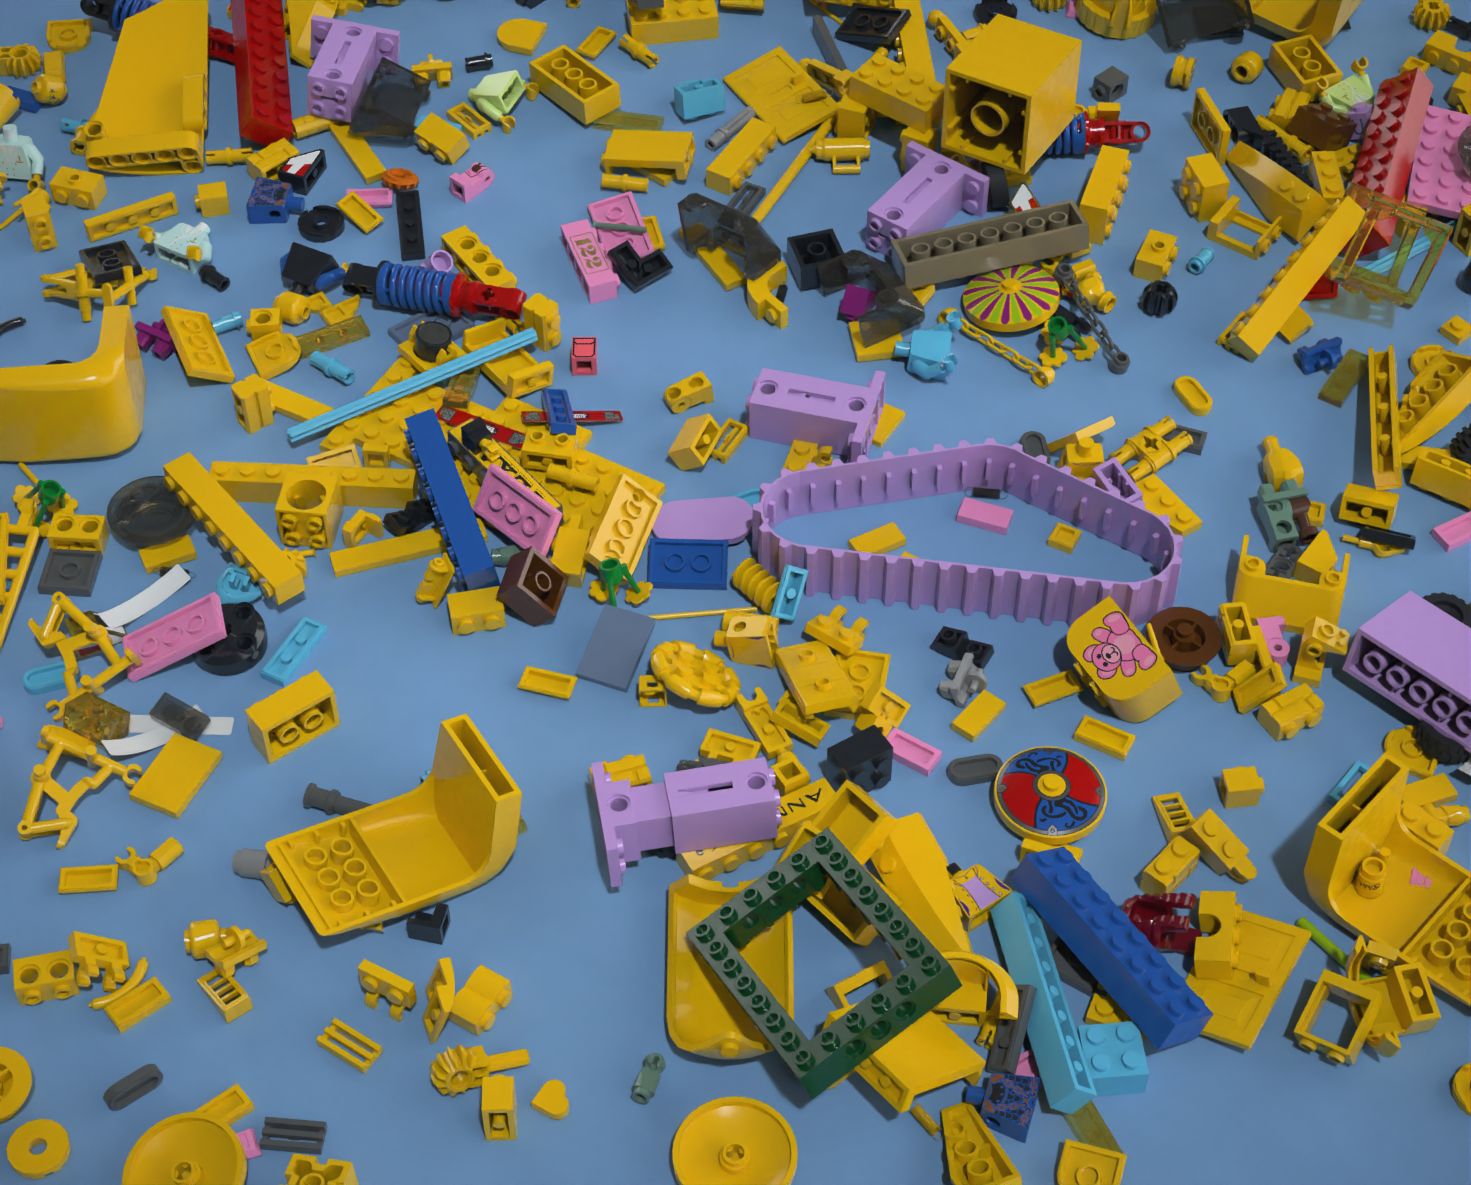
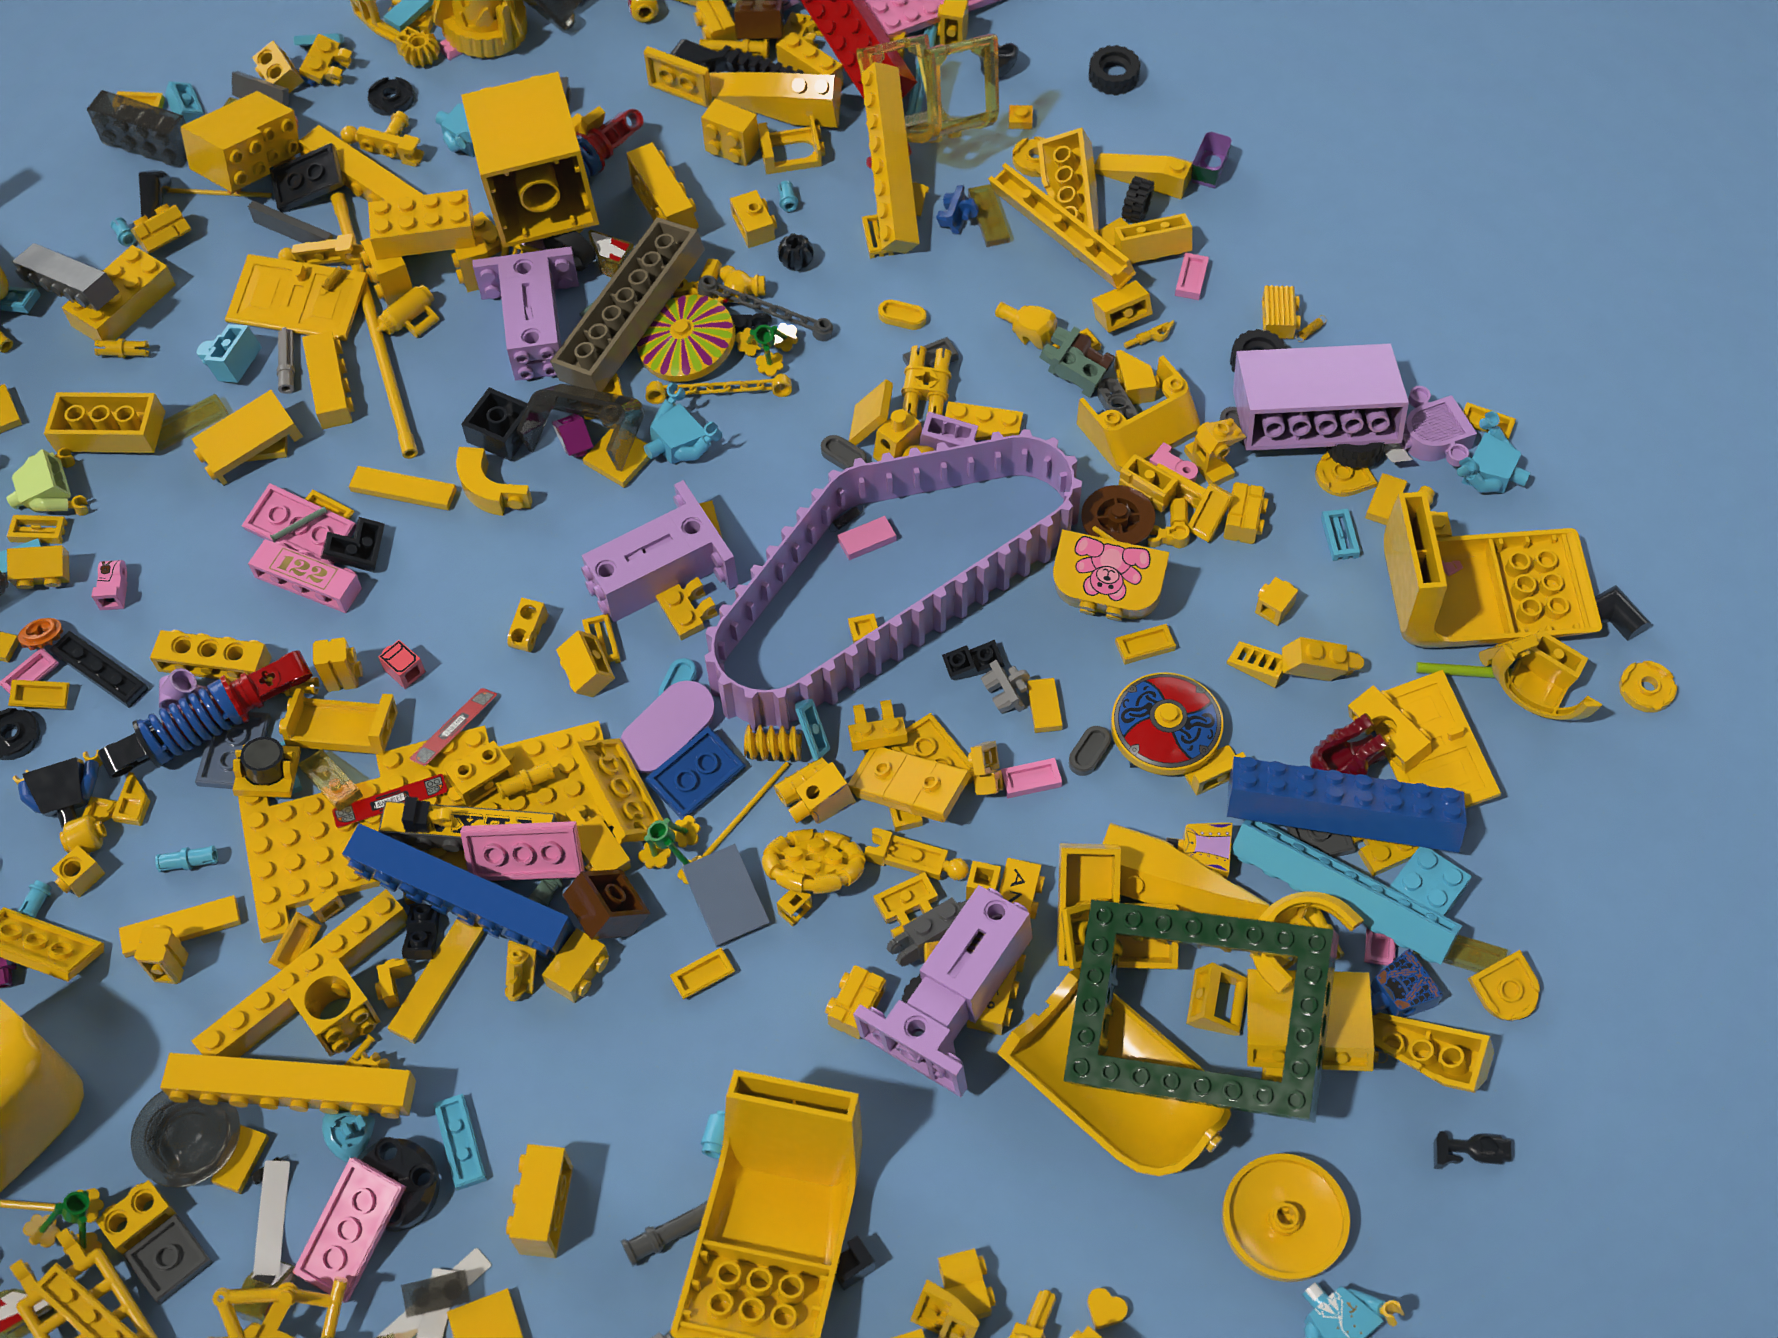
camera: 45 degrees left, 10 degrees up
(274, 353) = (116, 891): yellow tile -> none
(333, 336) = (149, 831): clear yellow tile -> none
(411, 385) = (286, 819): medium azure axle -> none
(558, 411) = (446, 732): blue tile -> none
(596, 42) = (71, 368): yellow tile -> none
(625, 182) = (252, 480): yellow pin -> none
(648, 1078) = (1154, 1220): sand green arm -> none
(714, 225) = (385, 460): clear smoke windscreen -> none
(750, 200) = (377, 433): dark grey tile -> none
(781, 293) = (497, 475): black piece -> none
(792, 719) = (935, 832): yellow tile -> none
(860, 759) = (1021, 823): black brick -> none
(879, 540) = (814, 628): yellow tile -> none
(1011, 1034) = (1356, 945): dark grey tile -> none
(1053, 688) = (1070, 636): yellow tile -> none
(1064, 538) = (942, 507): yellow tile -> none
(1170, 867) = (1305, 707): yellow brick -> none
(1183, 71) = (601, 43): yellow wheel -> none
(1351, 991) = (1541, 686): yellow window -> none
(1388, 537) = (1157, 320): black tile -> none

